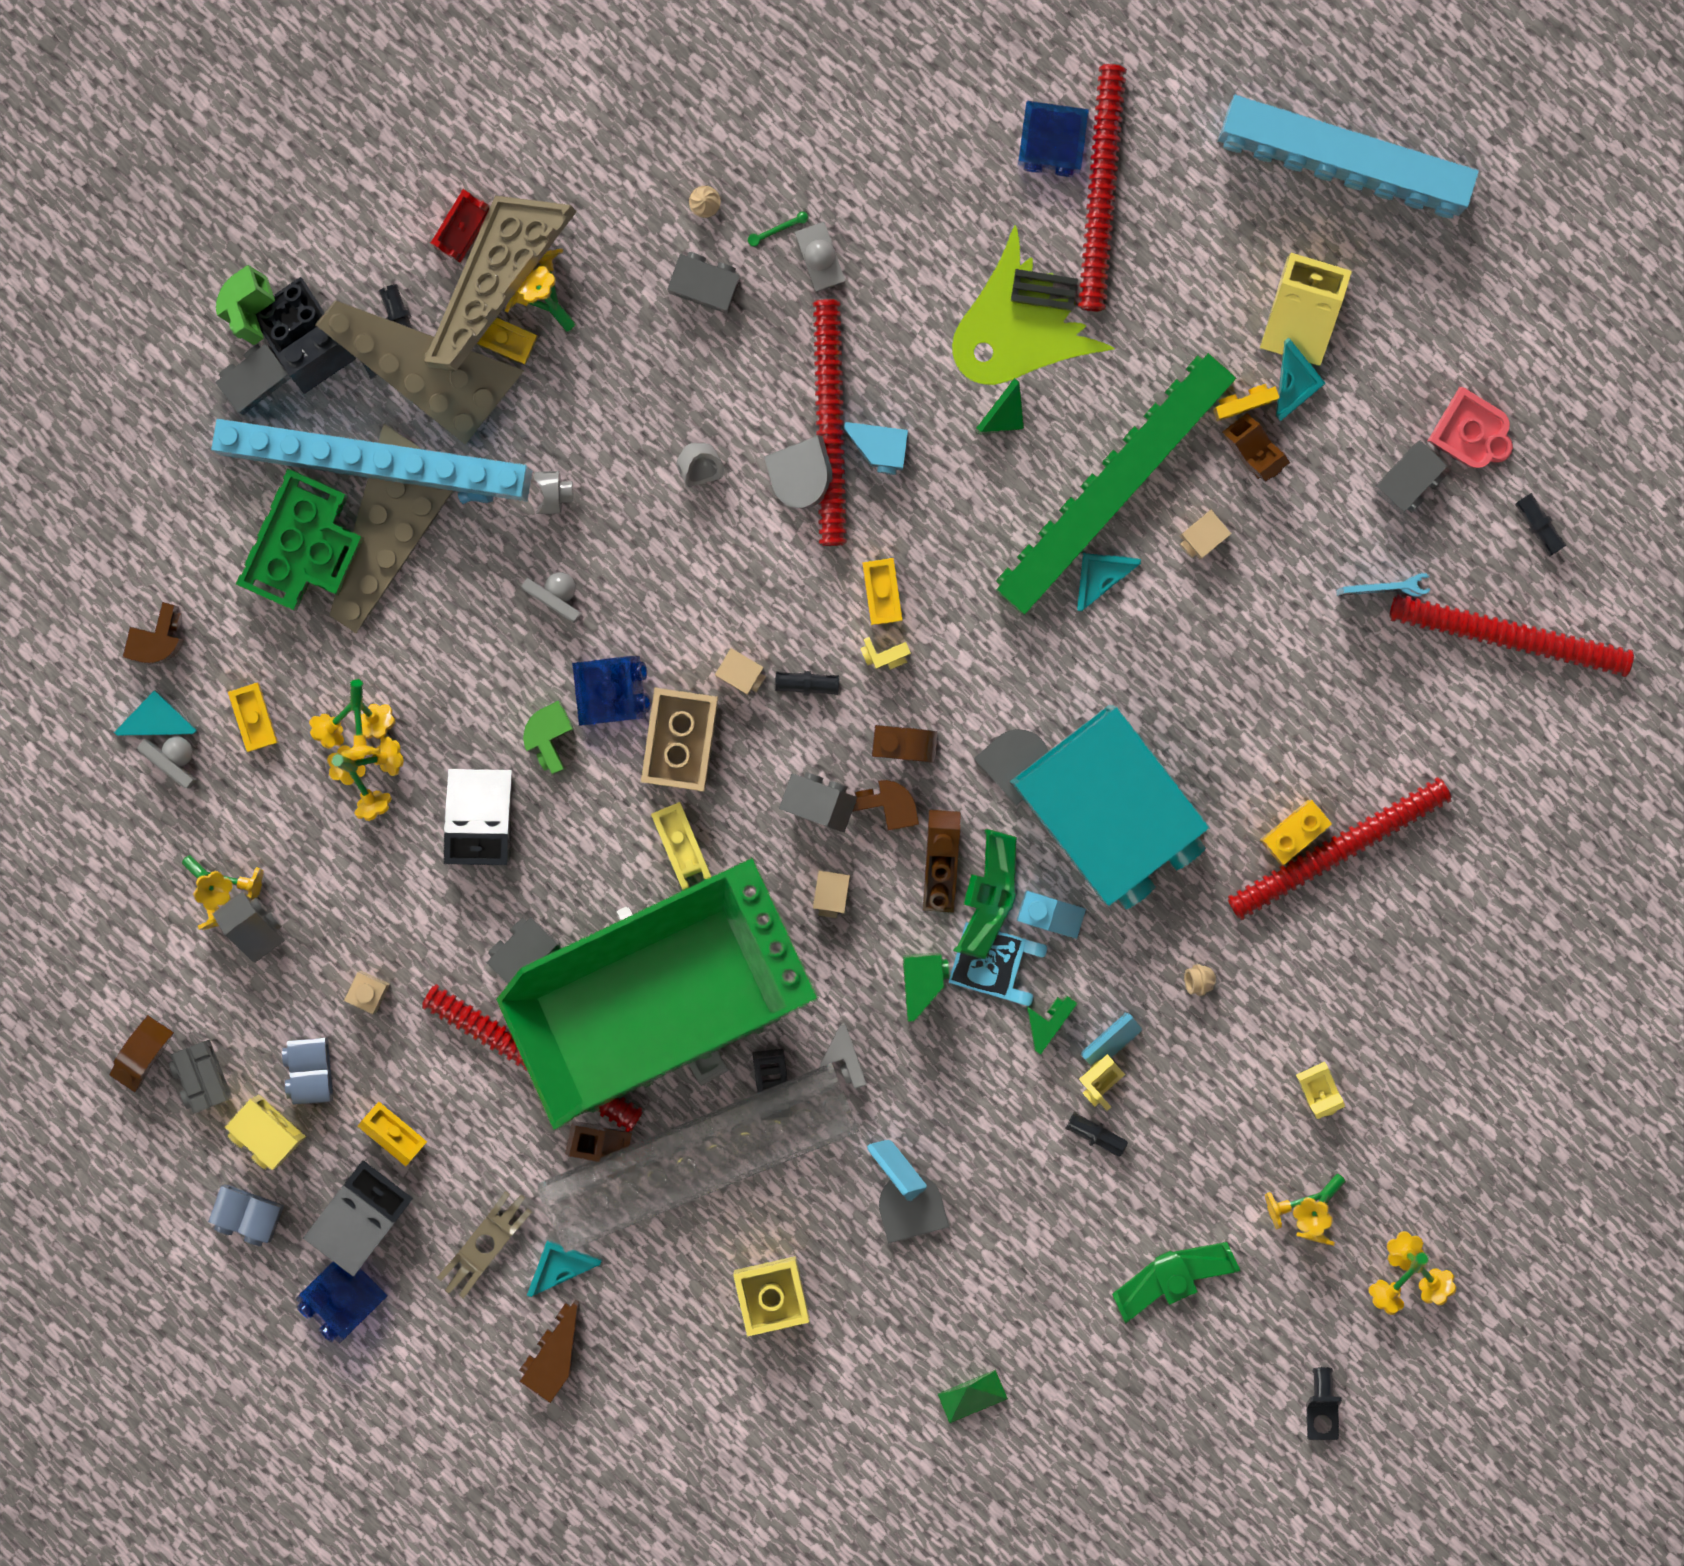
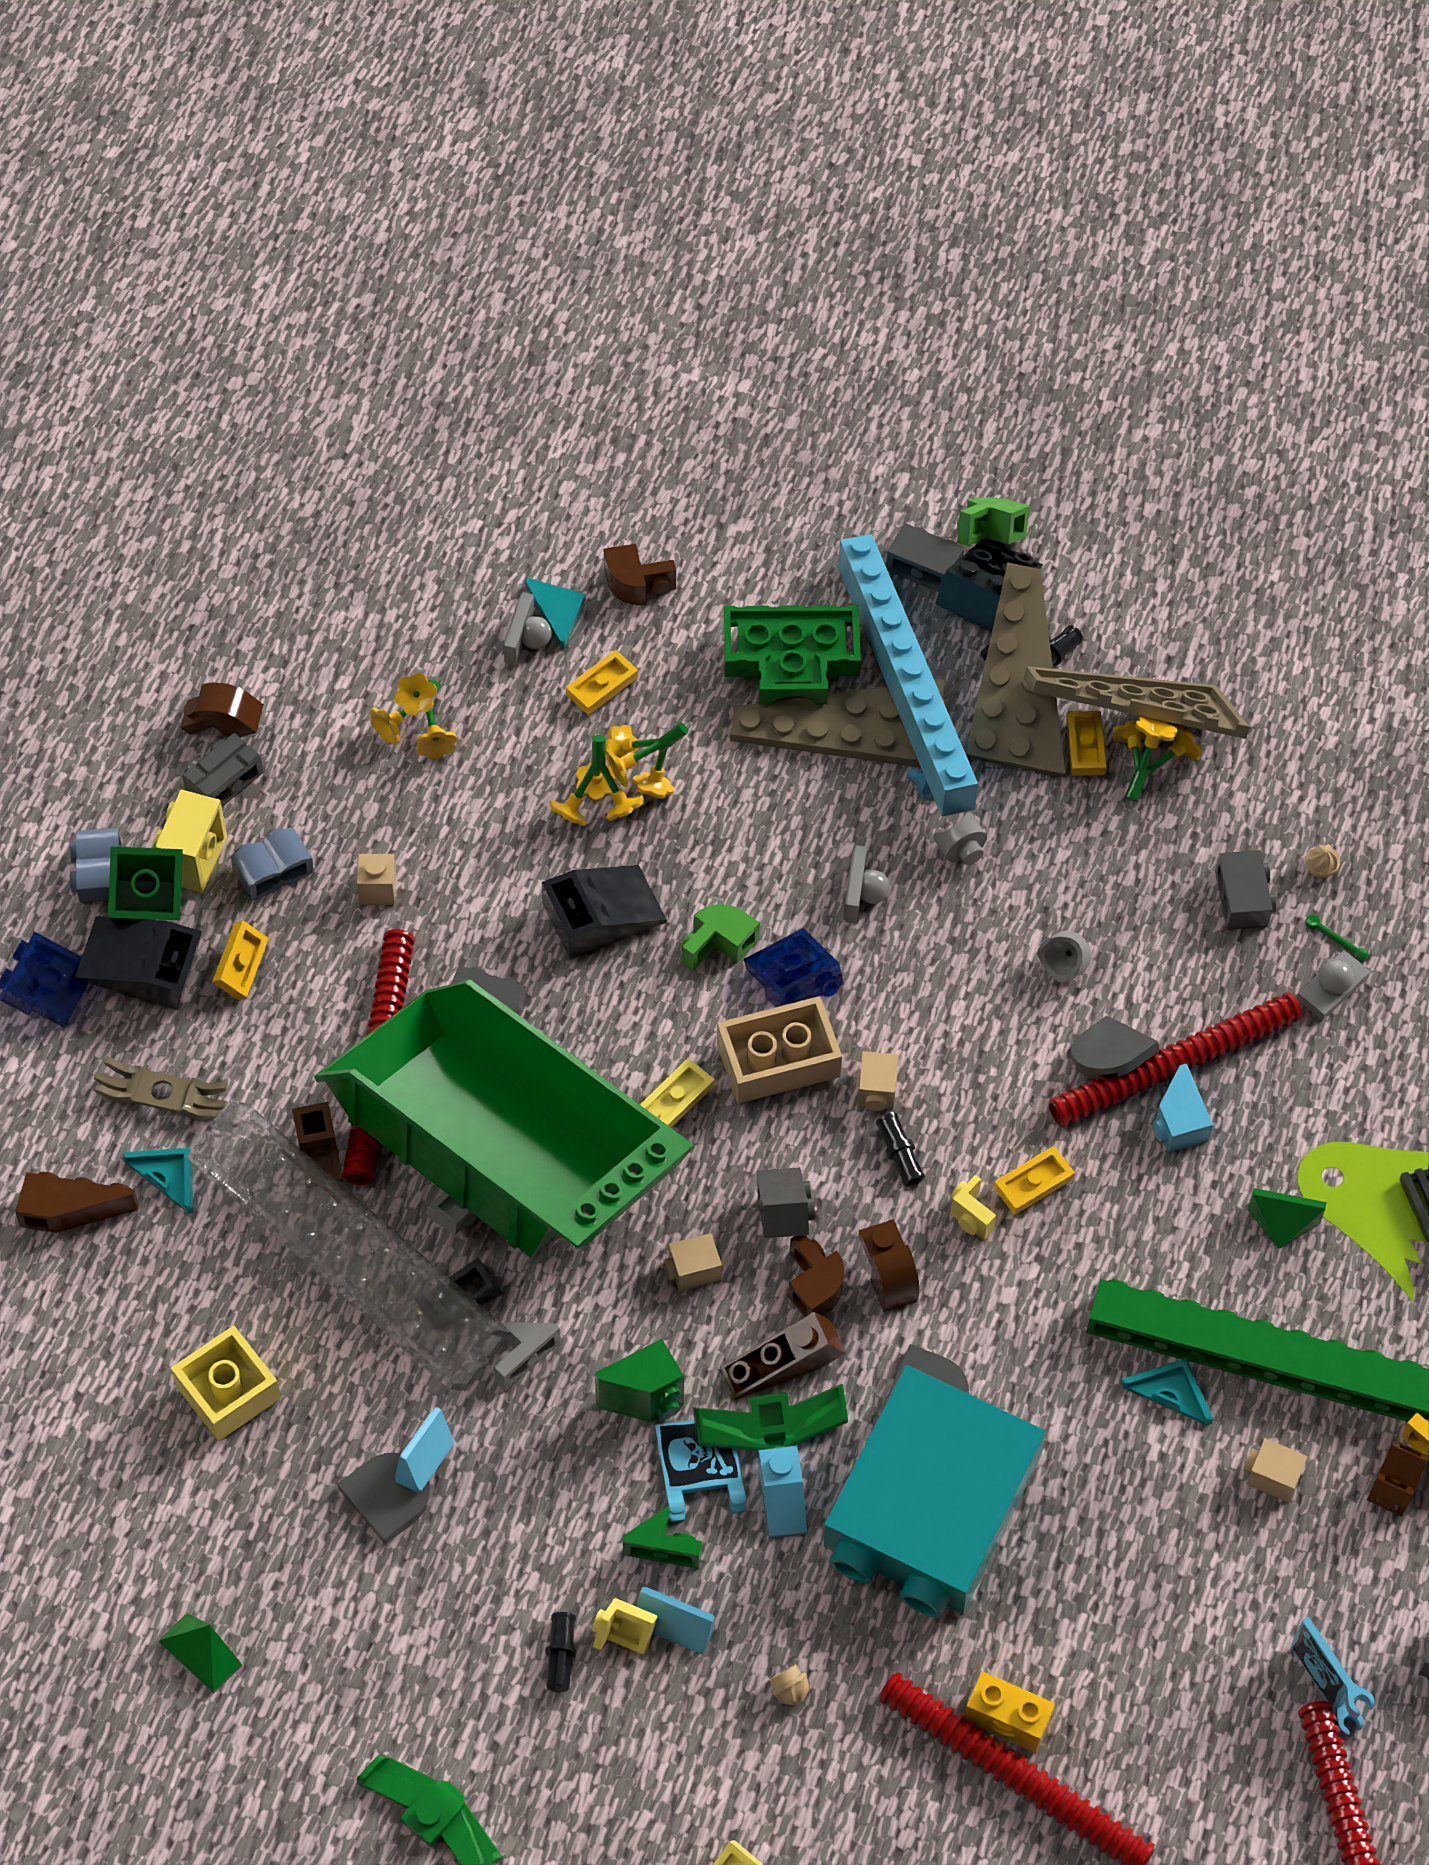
camera: 65 degrees right, 30 degrees down
(249, 926) = (393, 746): dark grey brick -> none
(302, 1191) = (145, 883): none -> green slope
(460, 226) = (1171, 661): red hinge -> none

